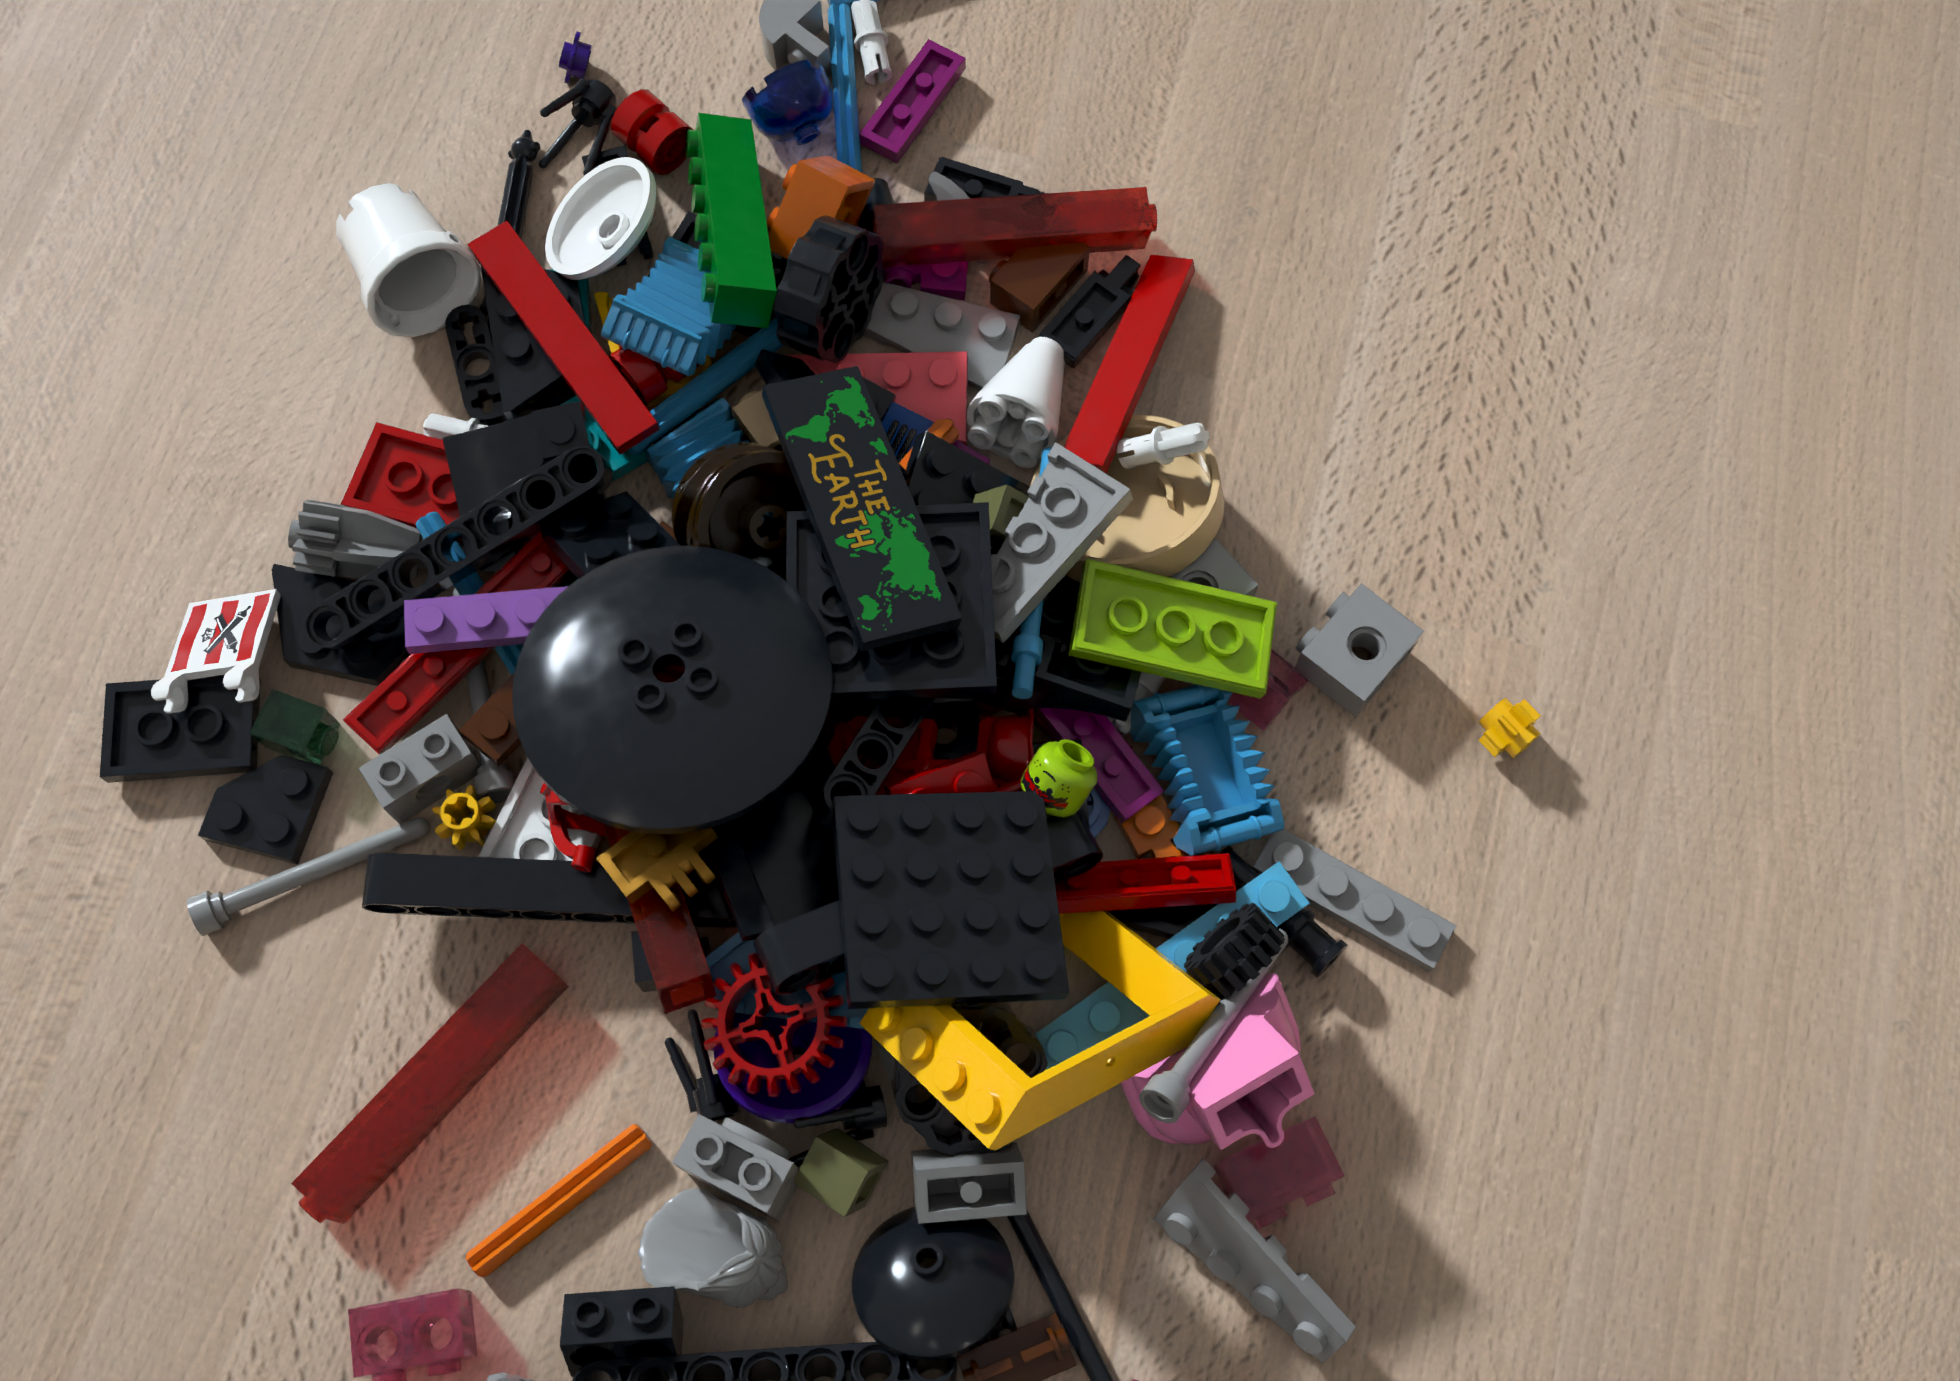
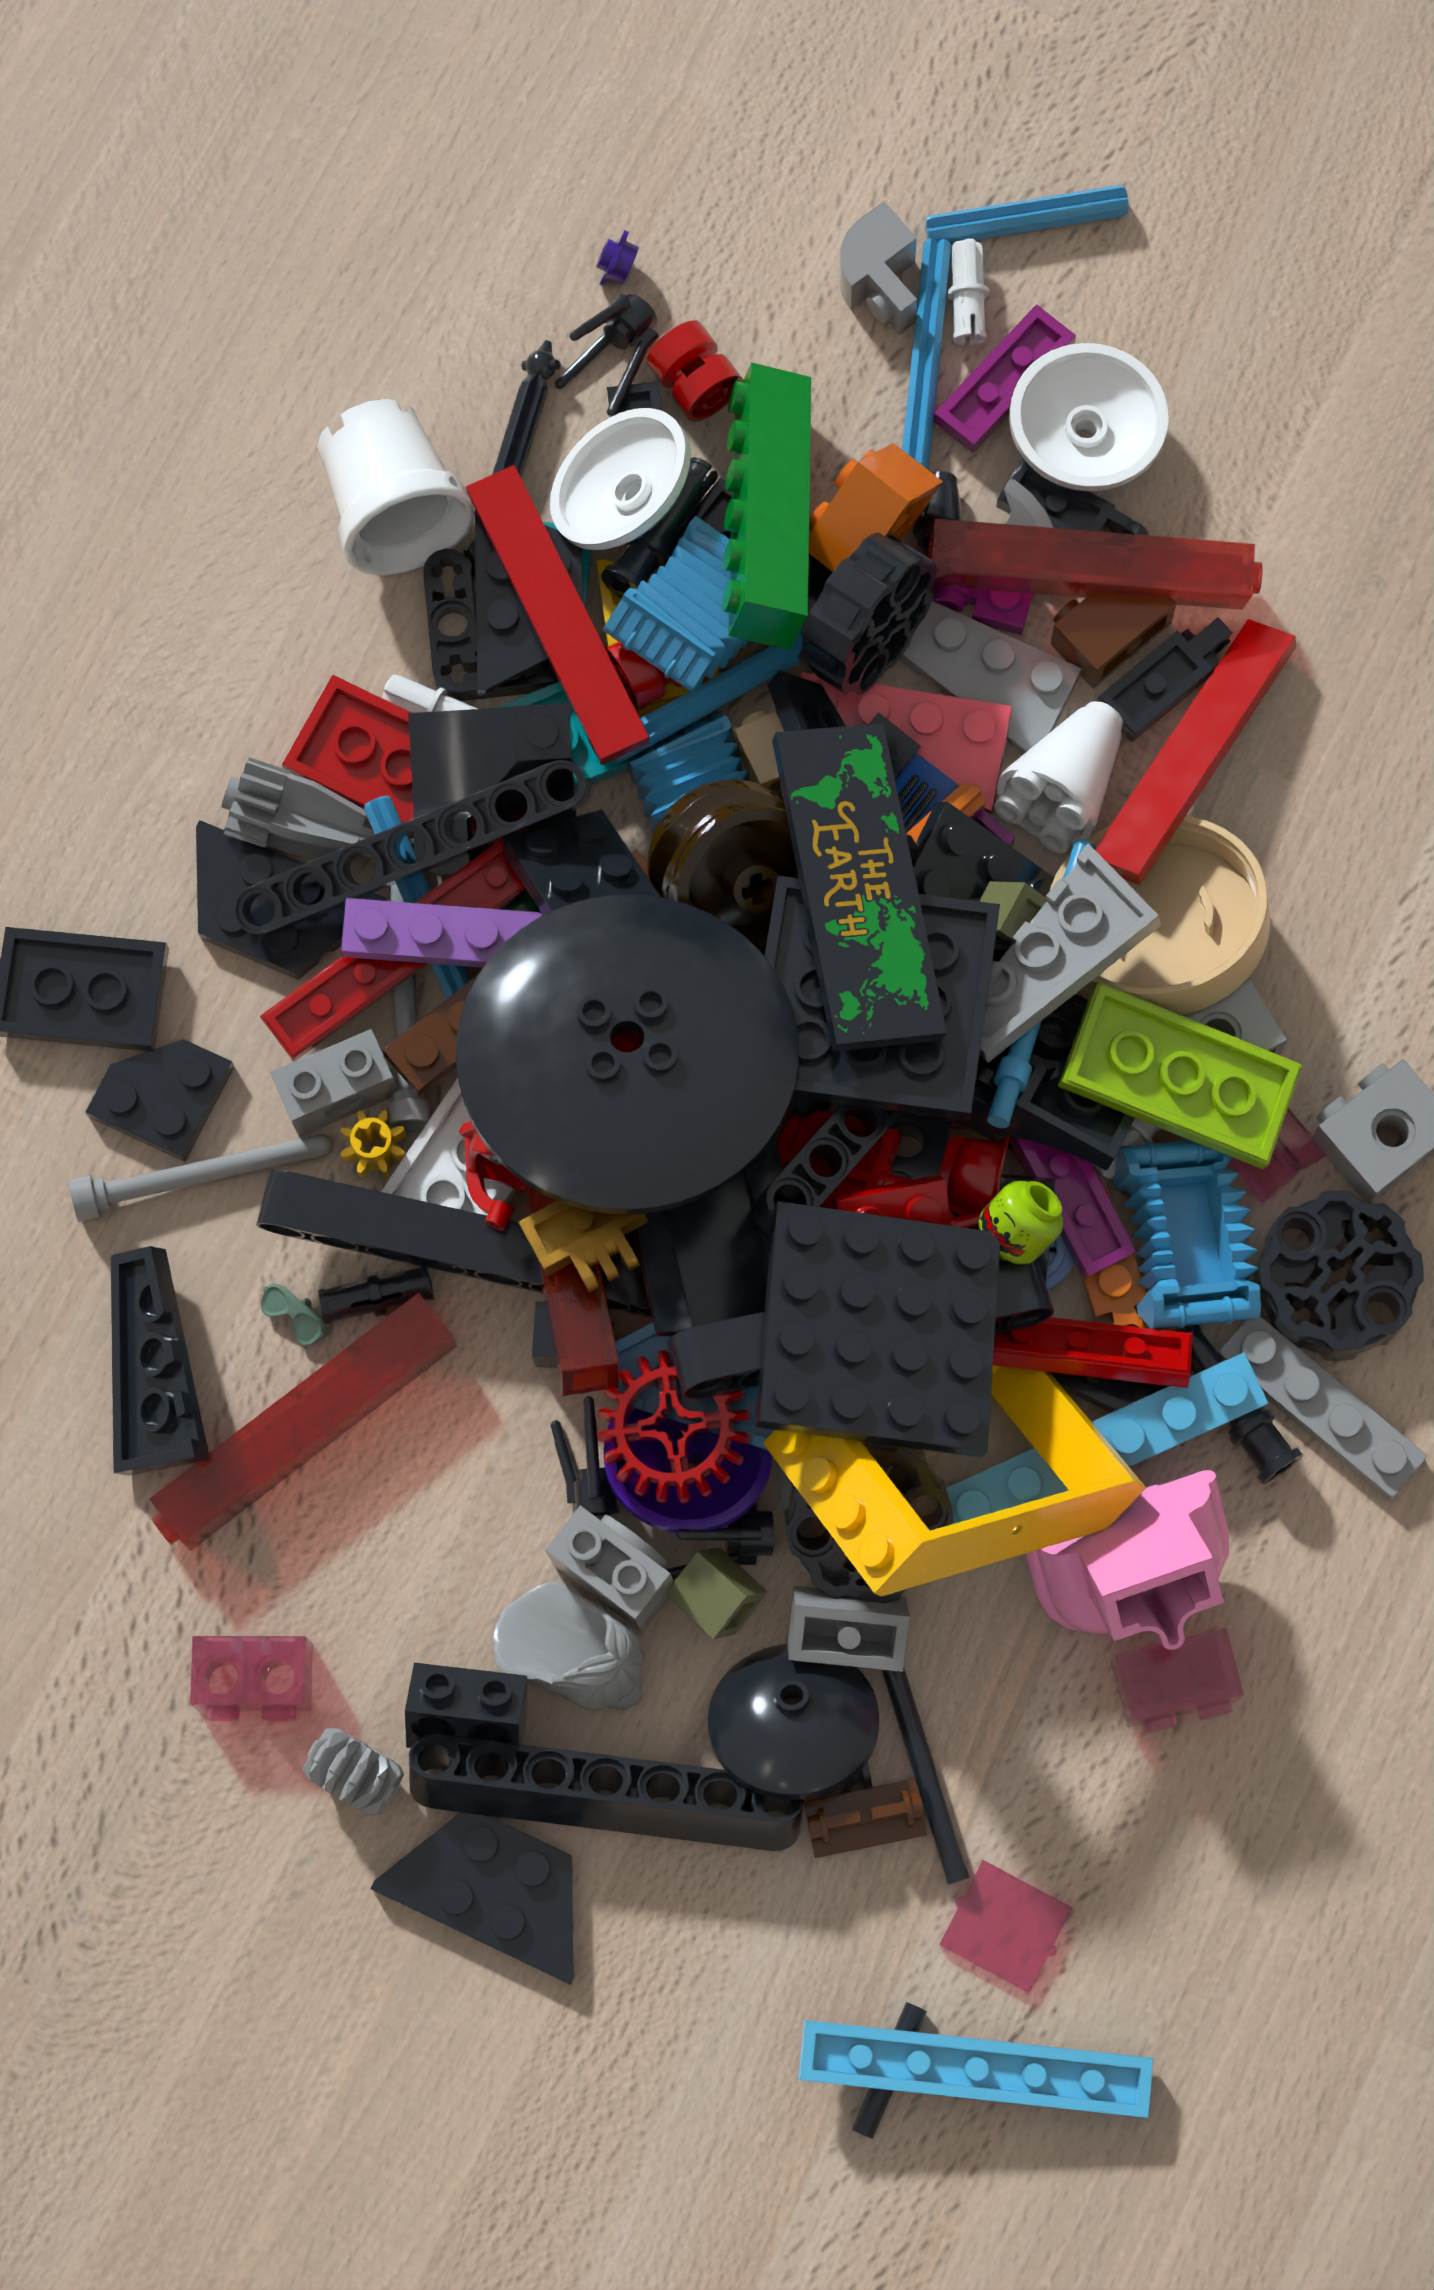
camera: 15 degrees right, 5 degrees up
(219, 639) = (133, 899): white flag -> none
(284, 1067) = (152, 1378): none -> black wing
(296, 728) = (204, 1013): clear green brick -> none
(425, 990) = (307, 1324): none -> sand green piece
(484, 952) = (375, 1294): none -> black pin
(558, 1200) = (417, 1568): orange axle -> none
(643, 257) = (652, 549): none -> black pin
(792, 104) = (862, 365): clear blue cylinder -> none
(991, 99) = (1094, 391): none -> white dish
(1163, 445) = (1210, 862): white axle -> none
(1167, 1093) = (1069, 1573): light grey piece -> none
(1234, 951) = (1173, 1440): black tyre -> none
(1253, 1264) = (1131, 1768): light grey wing -> none
(1322, 738) = (1391, 1284): none -> black connector

